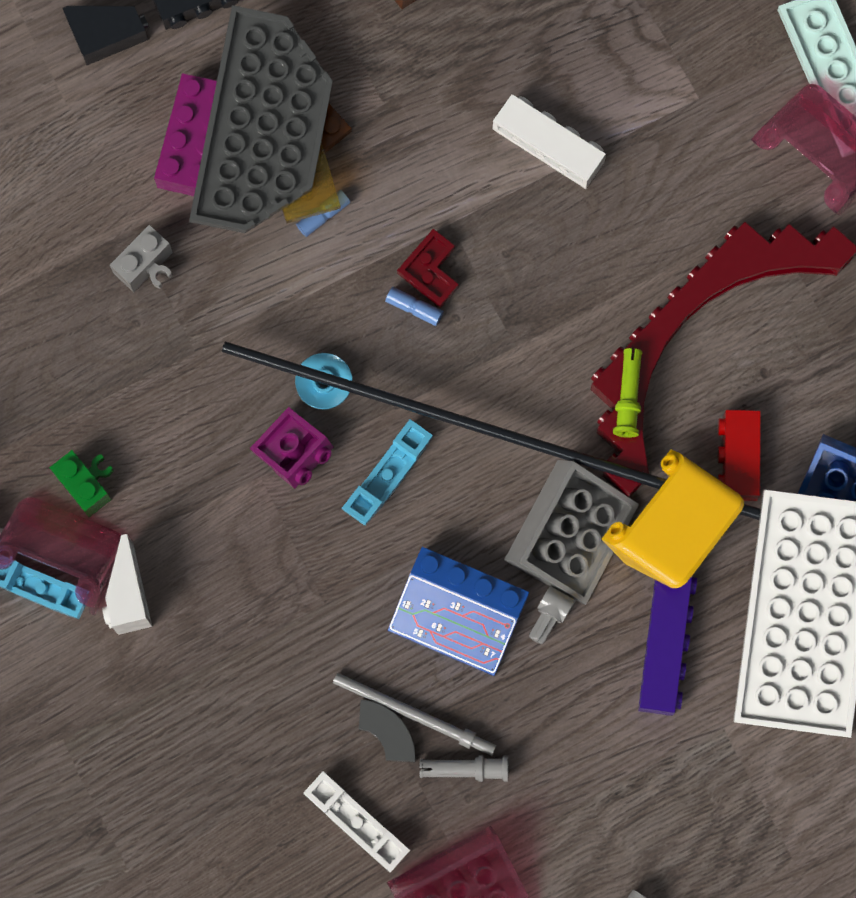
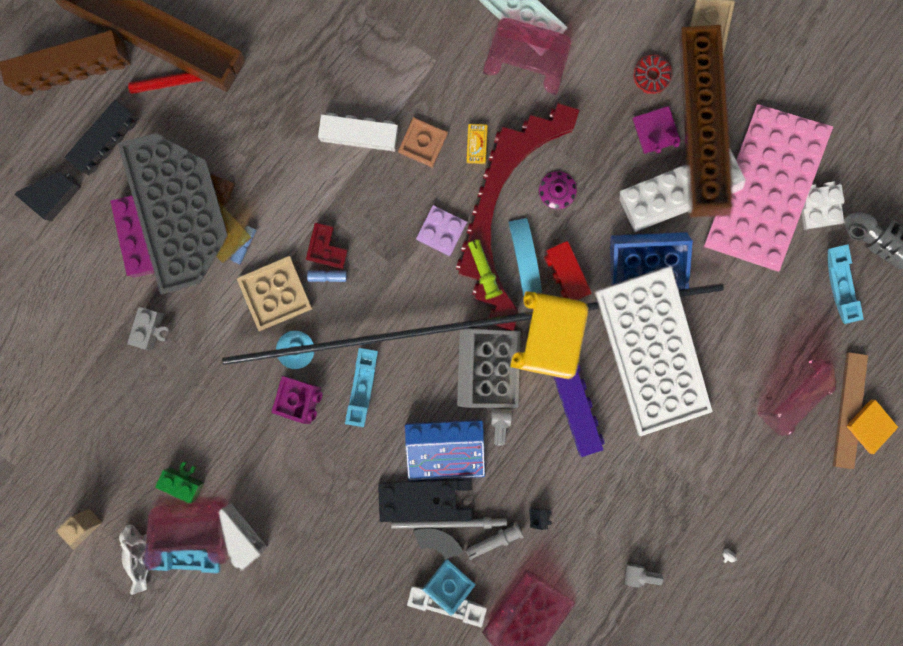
camera: 30 degrees left, 10 degrees up
(333, 295) = (274, 293): none -> tan plate
(372, 797) = (448, 587): none -> medium azure tile
(383, 661) = (415, 500): none -> black hinge
(541, 766) = (538, 518): none -> black tile
(596, 320) = (441, 230): none -> lavender plate
(628, 194) = (423, 142): none -> nougat tile
(694, 405) = (525, 256): none -> medium azure slope
(700, 230) = (476, 143): none -> yellow tile
(777, 355) = (555, 199): none -> magenta dish

